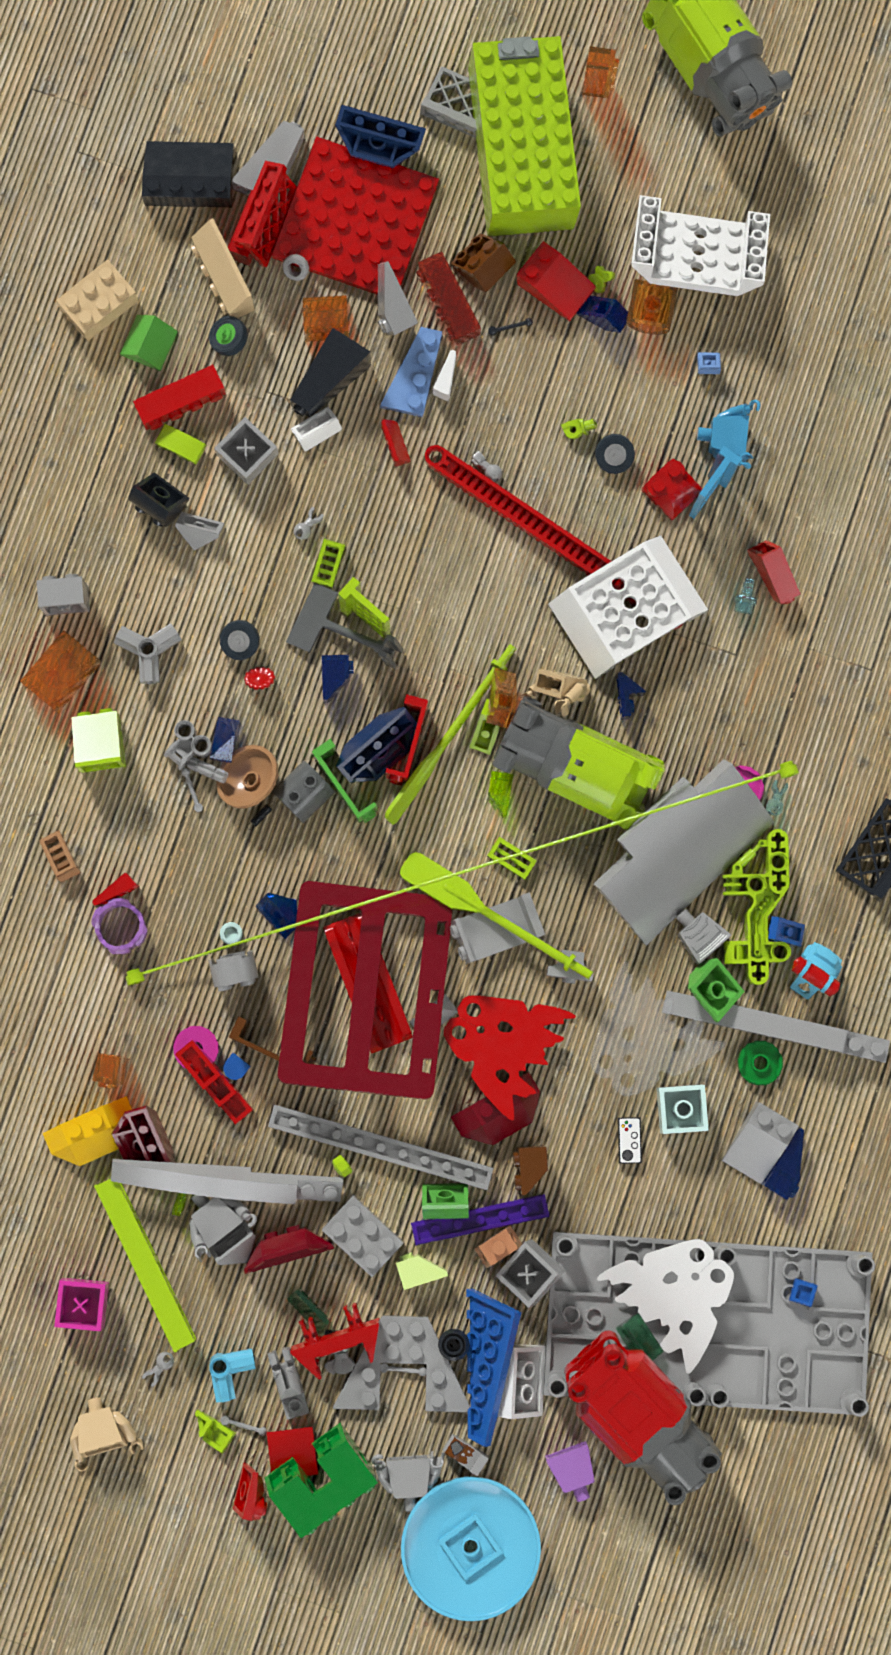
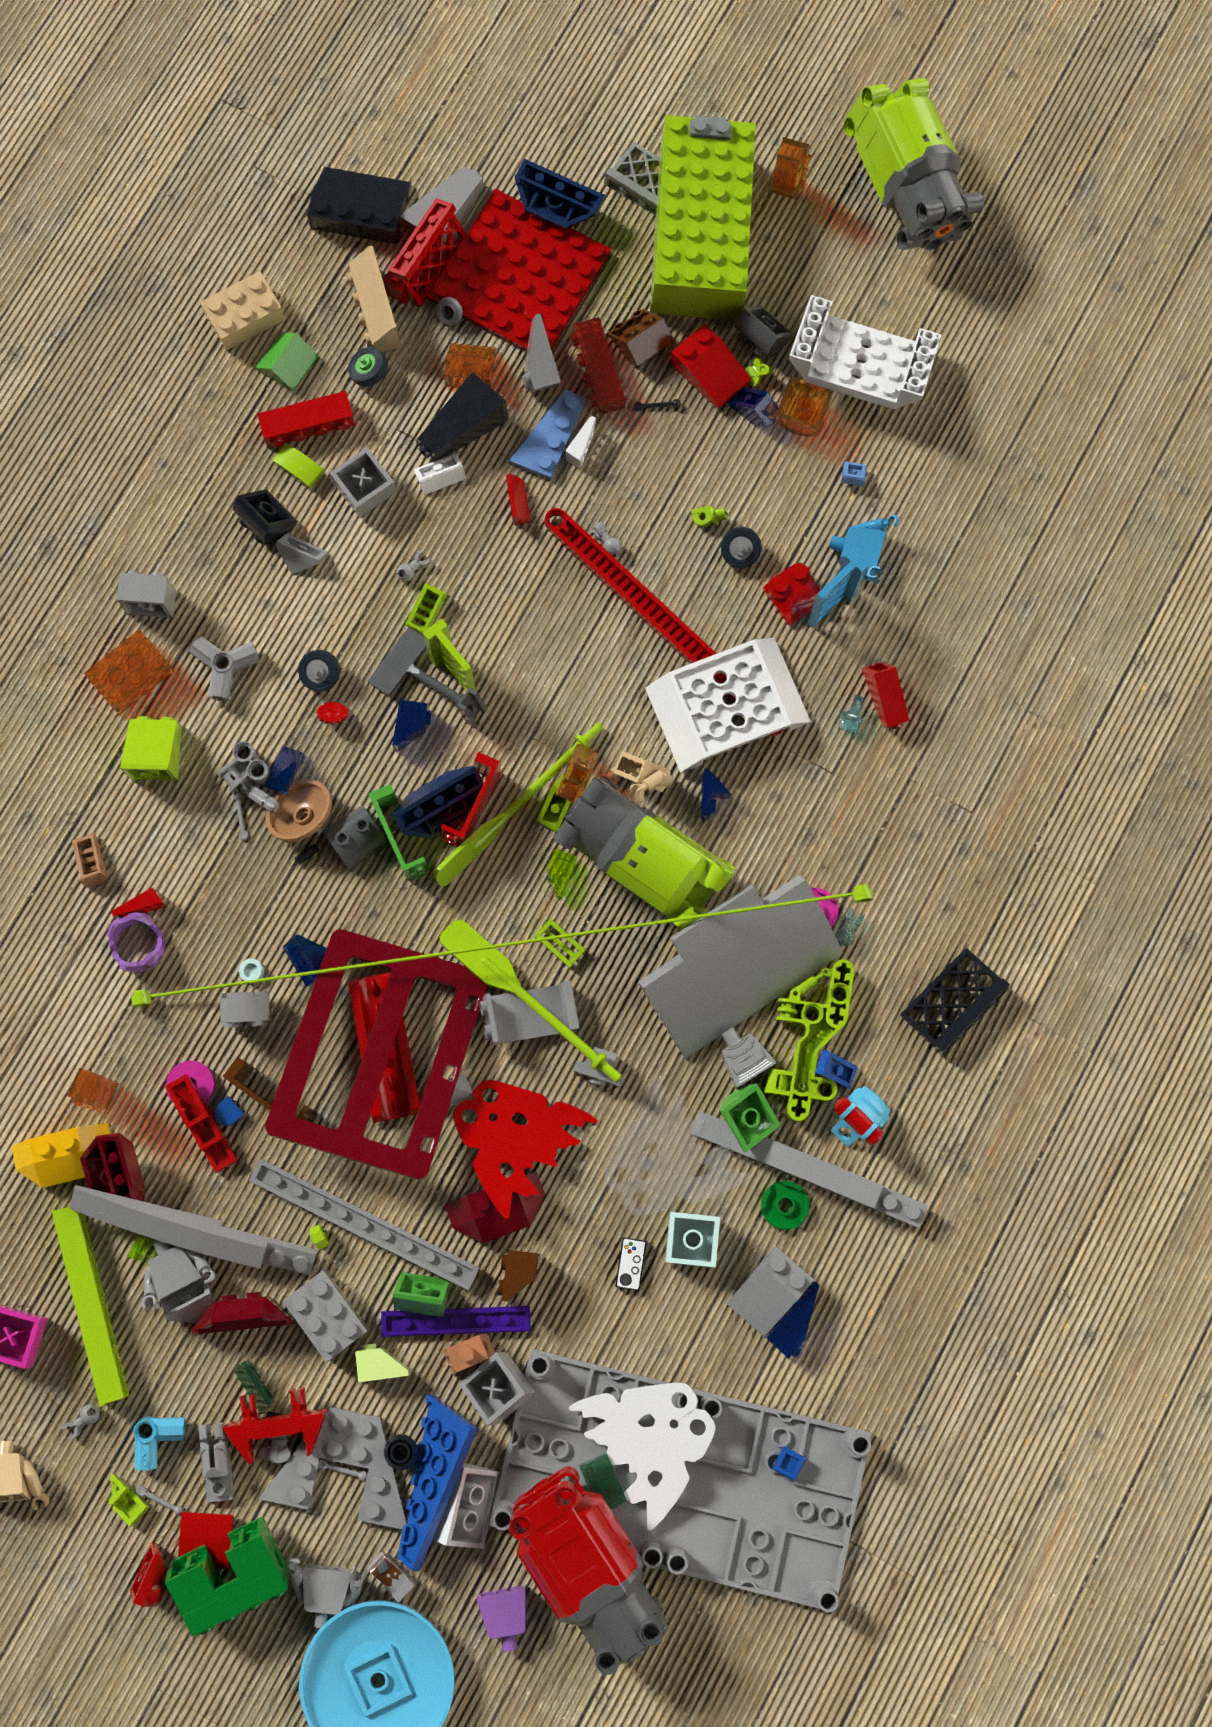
camera: 15 degrees right, 5 degrees down
(599, 237) = (762, 330): none -> dark grey brick

